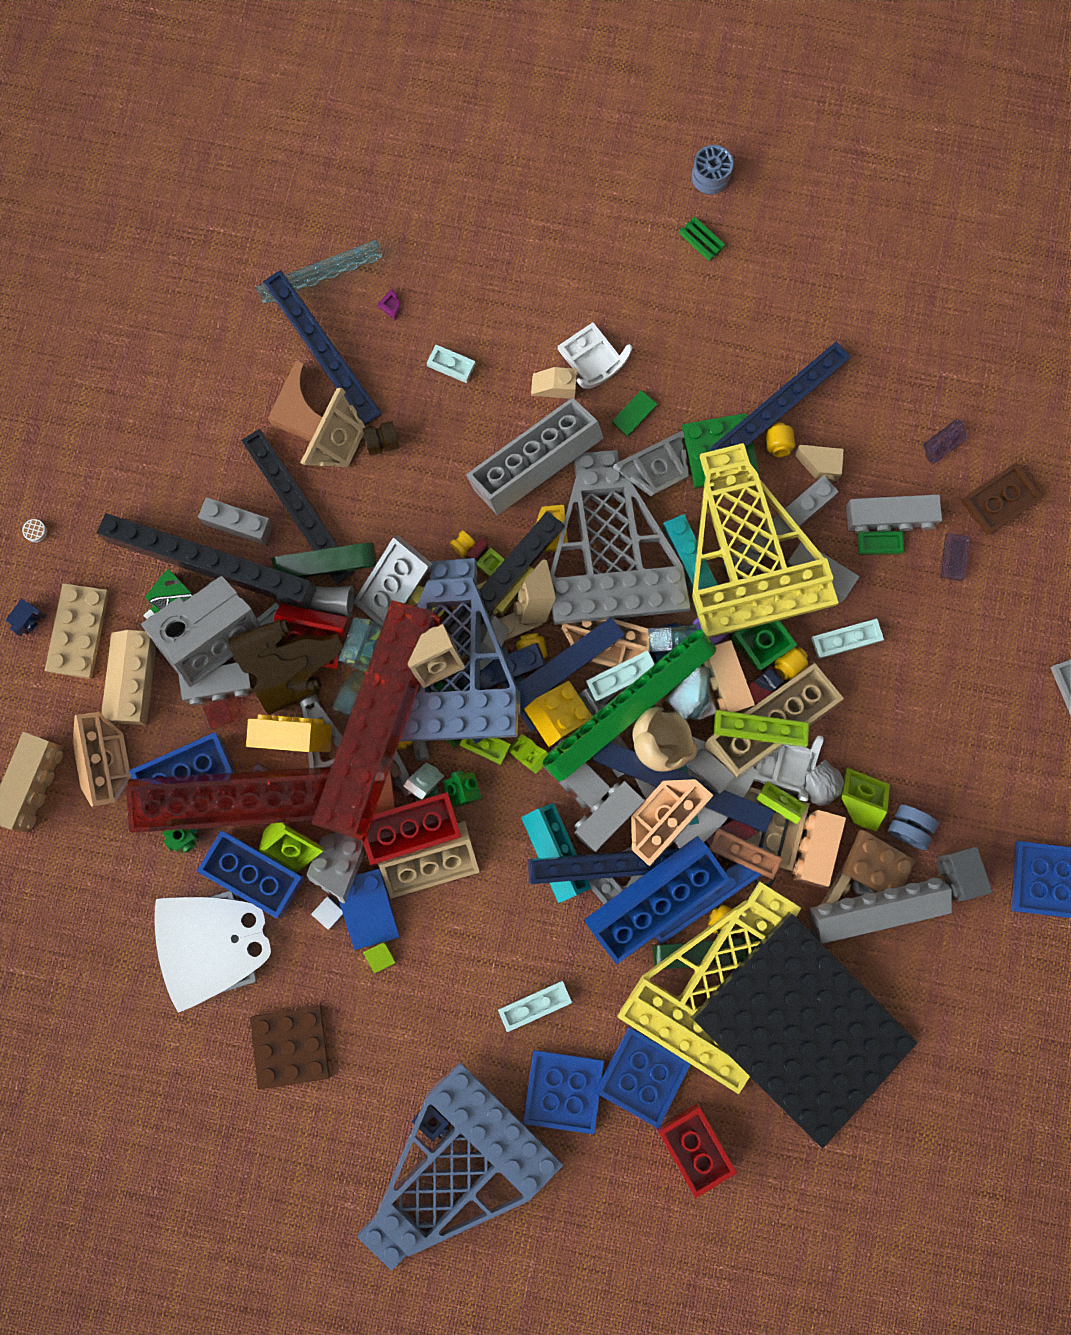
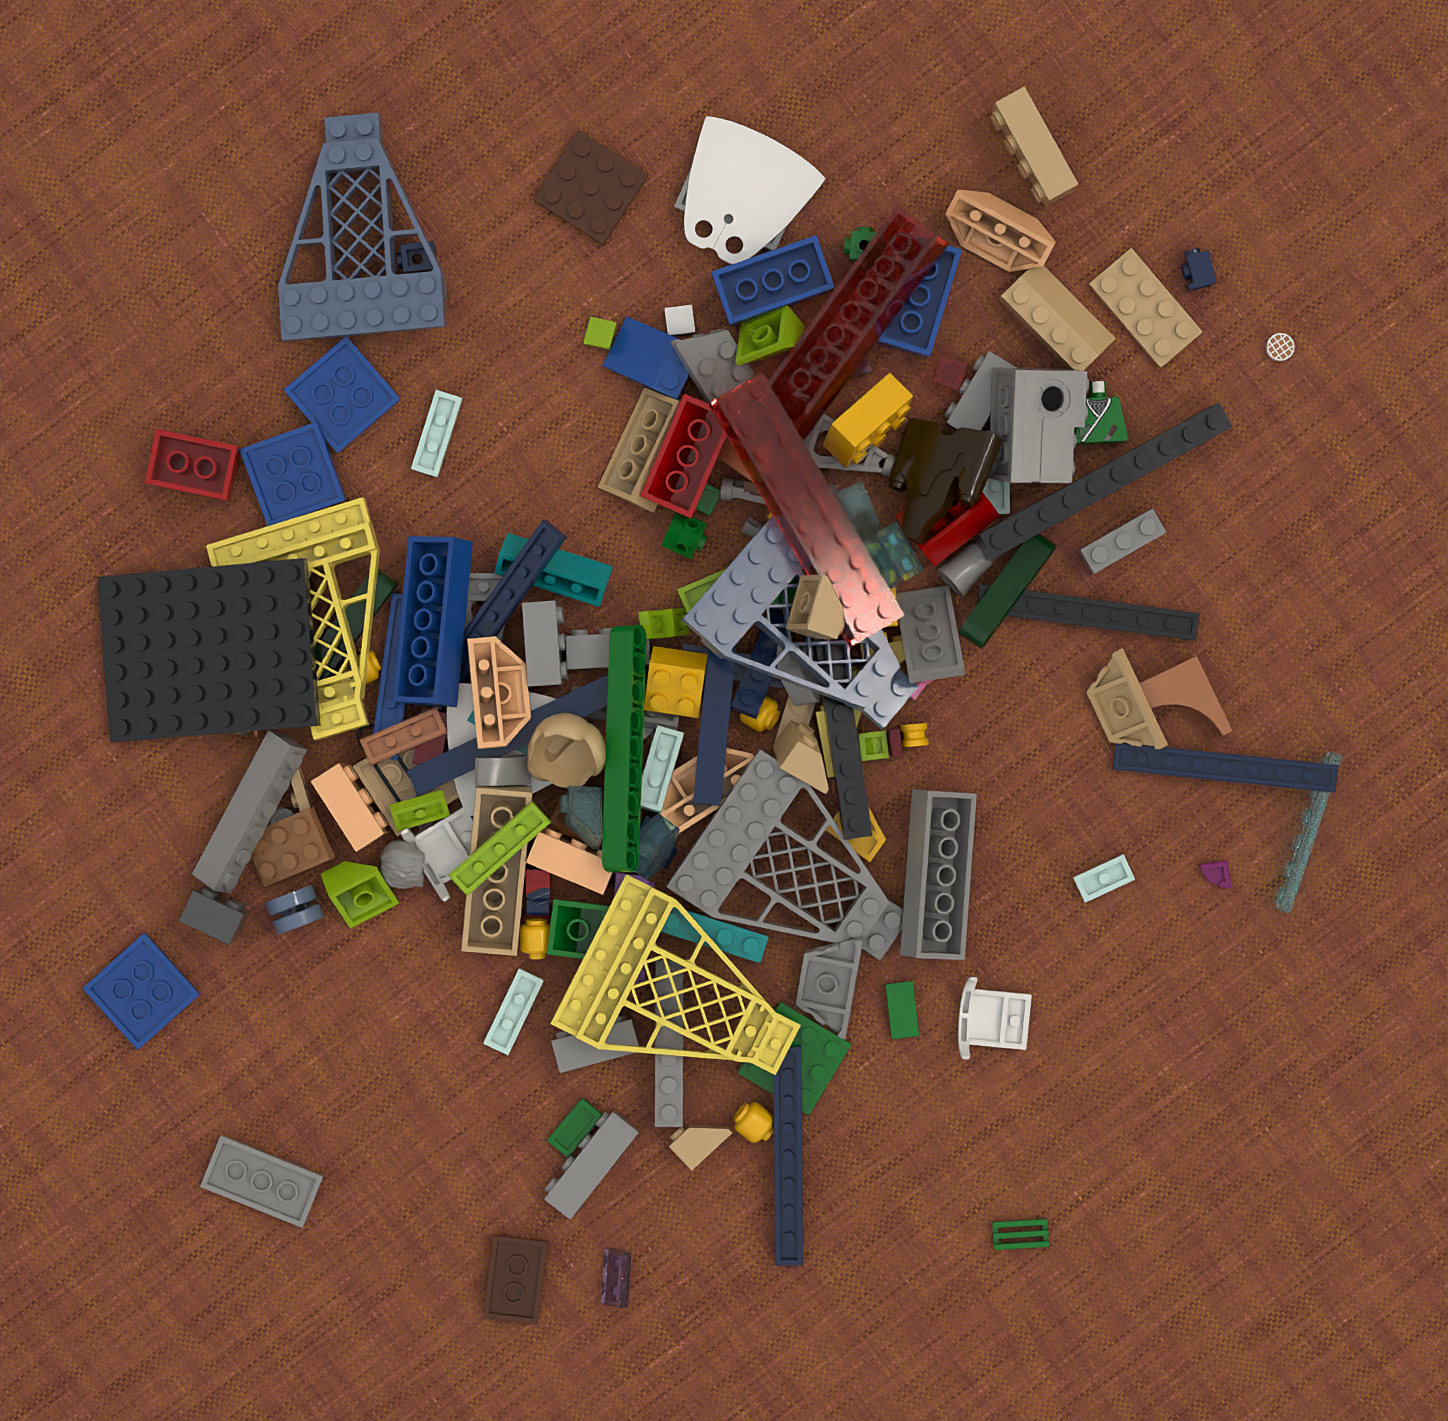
camera: 130 degrees right, 10 degrees up
(381, 438) = (1085, 746): dark brown wheel -> none
(424, 780) = (721, 507): light aqua plate -> none
(555, 383) = (997, 958): tan slope -> none
(712, 169) = (1094, 1303): sand blue wheel -> none
(954, 557) = (500, 1183): clear purple plate -> none

